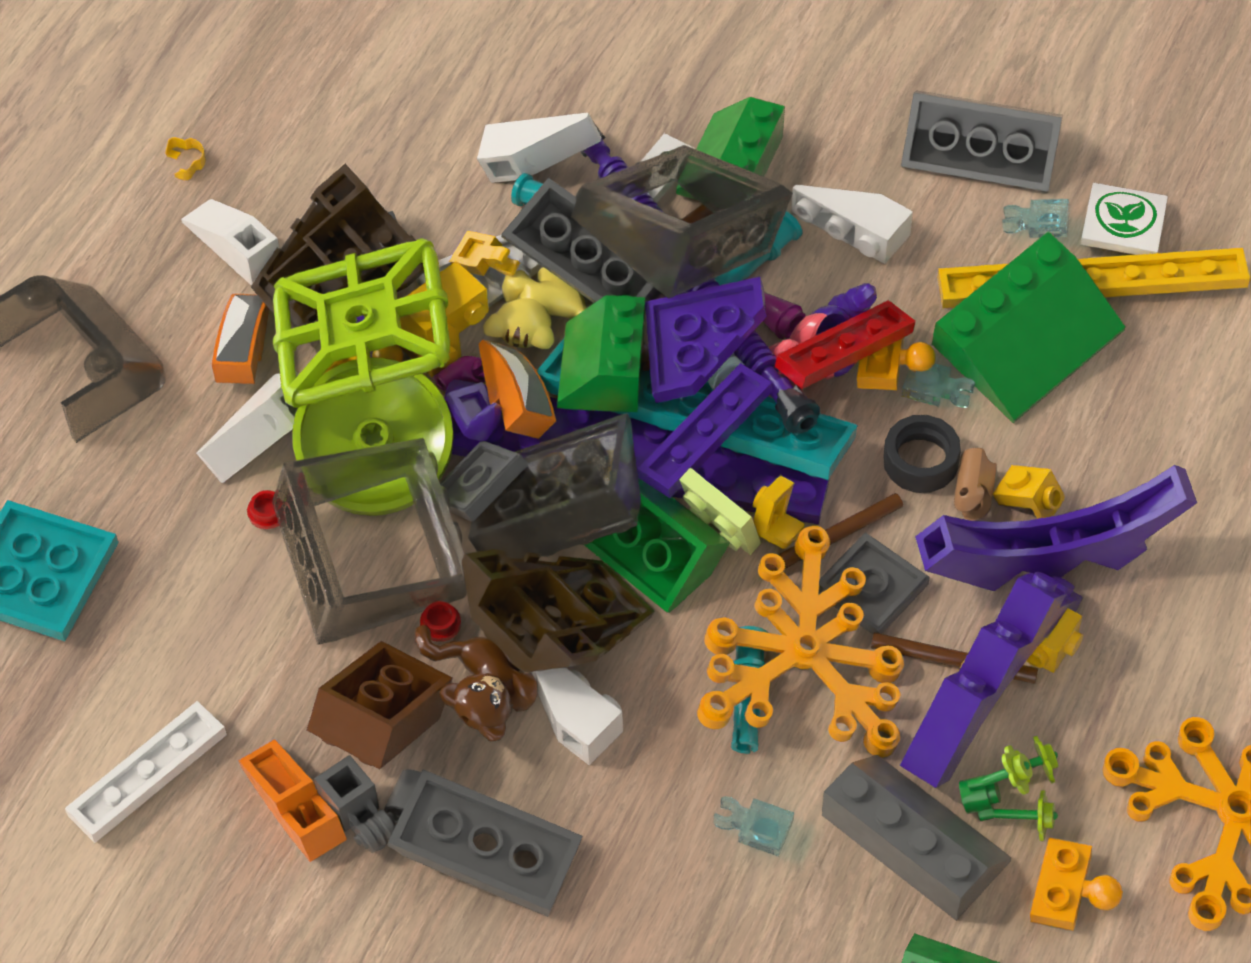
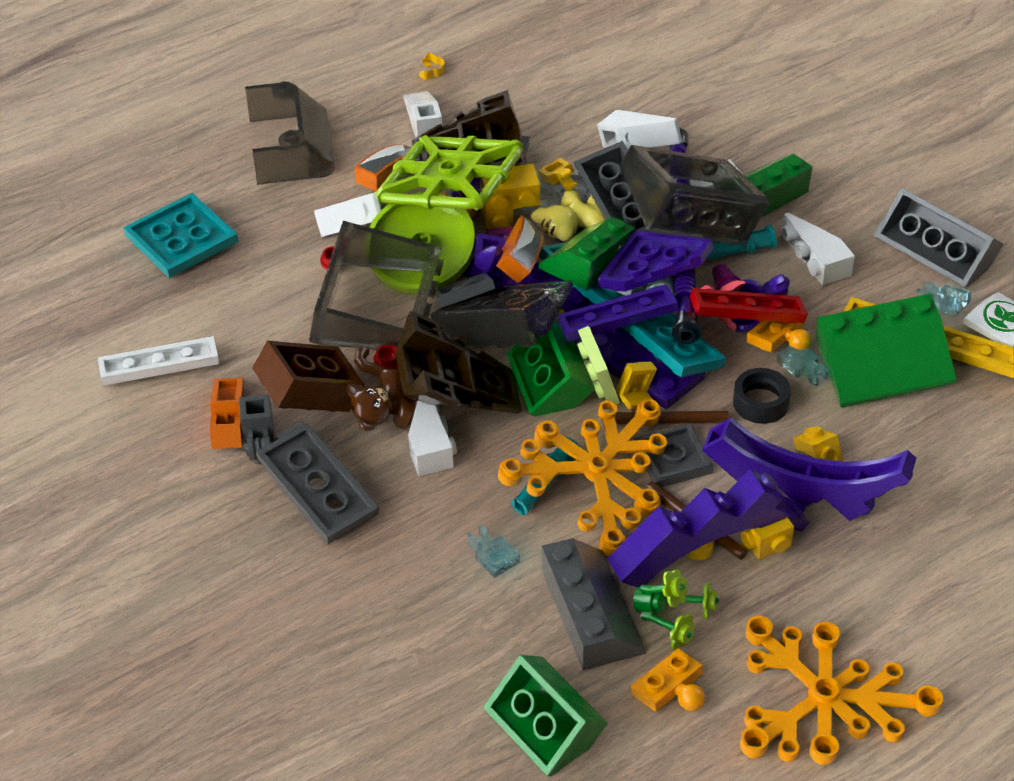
camera: 30 degrees right, 10 degrees down
(975, 484) = (784, 425): medium nougat piece -> none

